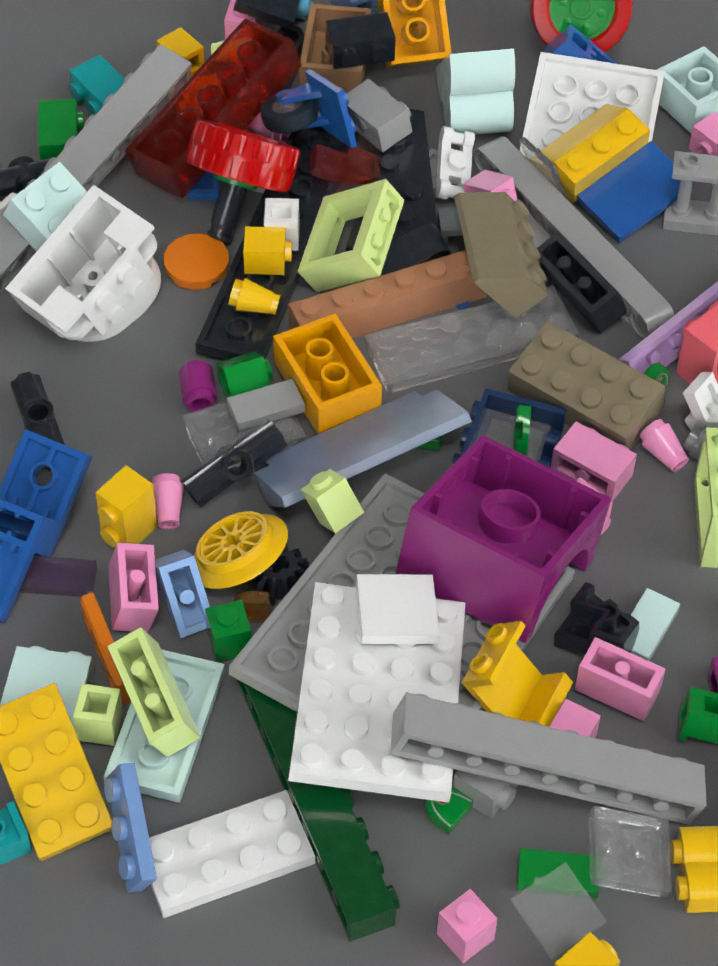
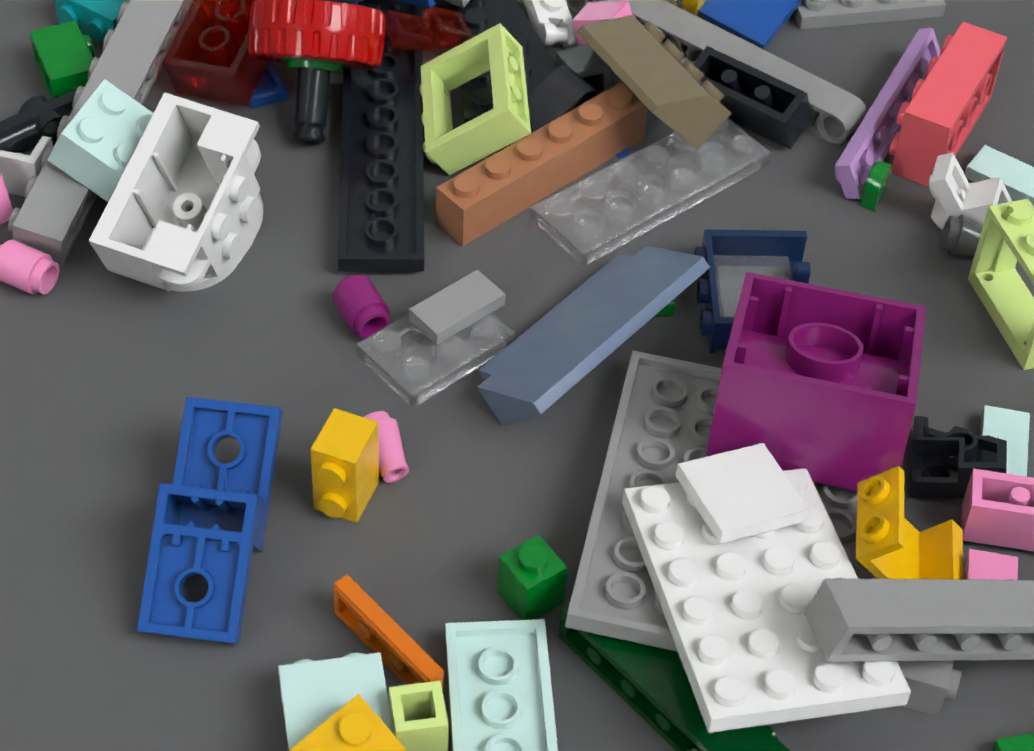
camera: 20 degrees left, 5 degrees down
(35, 407) = (170, 376): black piece -> none
(60, 576) = (289, 570): clear purple tile -> none
(132, 587) = (392, 556): bright pink brick -> none
(153, 692) = (485, 672): yellowish green brick -> none
(182, 592) = (451, 546): light blue slope -> none
(196, 261) = (294, 171): orange tile -> none
(239, 548) = (500, 480): yellow piece -> none
(244, 374) = (413, 280): green brick -> none
(253, 298) = (389, 191): yellow cone -> none
(253, 449) = (432, 399): black piece -> none
(256, 605) = (554, 533): clear orange tile -> none
(266, 250) = (381, 136): yellow brick -> none
(281, 575) = (558, 496): black gear -> none
(284, 213) = (389, 103): white panel -> none
(327, 372) = (514, 250): light orange brick -> none
(332, 500) = (594, 392): yellowish green brick -> none
(450, 814) = (886, 724): green tile -> none
(522, 429) = (764, 257): green tile -> none
(588, 384) = (841, 206): dark tan brick -> none
(594, 459) = (859, 271): bright pink brick -> none
(664, 445) = (923, 247): bright pink cone -> none

